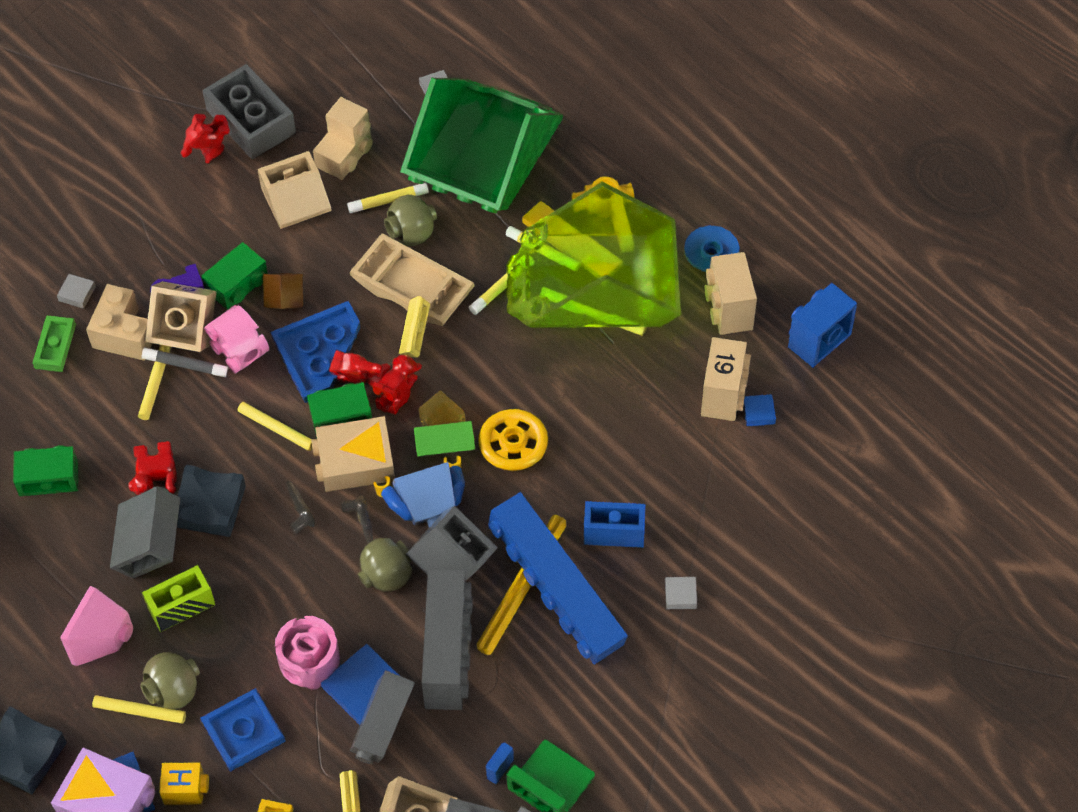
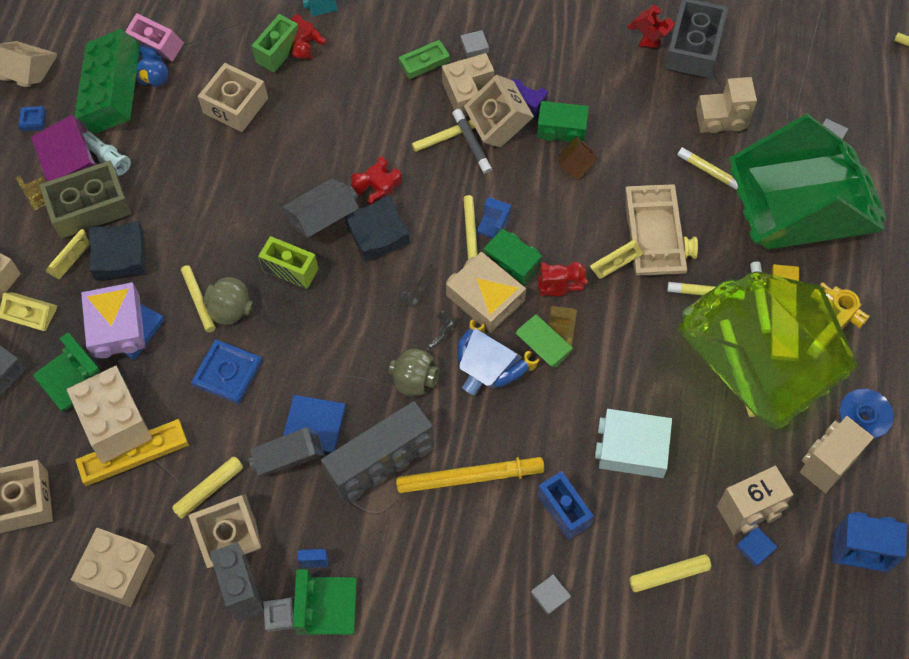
camera: 55 degrees right, 5 degrees up
(45, 471) = (327, 121): green brick -> none
(96, 628) = (229, 228): bright pink slope -> none
(183, 783) = (158, 362): yellow brick -> none
(237, 338) = (511, 155): bright pink brick -> none
(285, 398) = (495, 217): none -> blue panel
(294, 189) = (660, 107): tan slope -> none
(307, 651) = (306, 369): bright pink brick -> none
(311, 344) = (551, 210): blue plate -> none
(356, 368) = (550, 244): red animal -> none
(411, 219) = (703, 195): olive plant -> none
(452, 545) = (454, 406): dark grey slope -> none
(453, 263) = (690, 247): none -> light yellow bush
(511, 418) = (578, 407): yellow plate -> none
(556, 578) = (485, 496): blue brick -> none
(598, 435) = (634, 443): none -> light aqua brick
(732, 489) = (670, 573): none -> light yellow axle

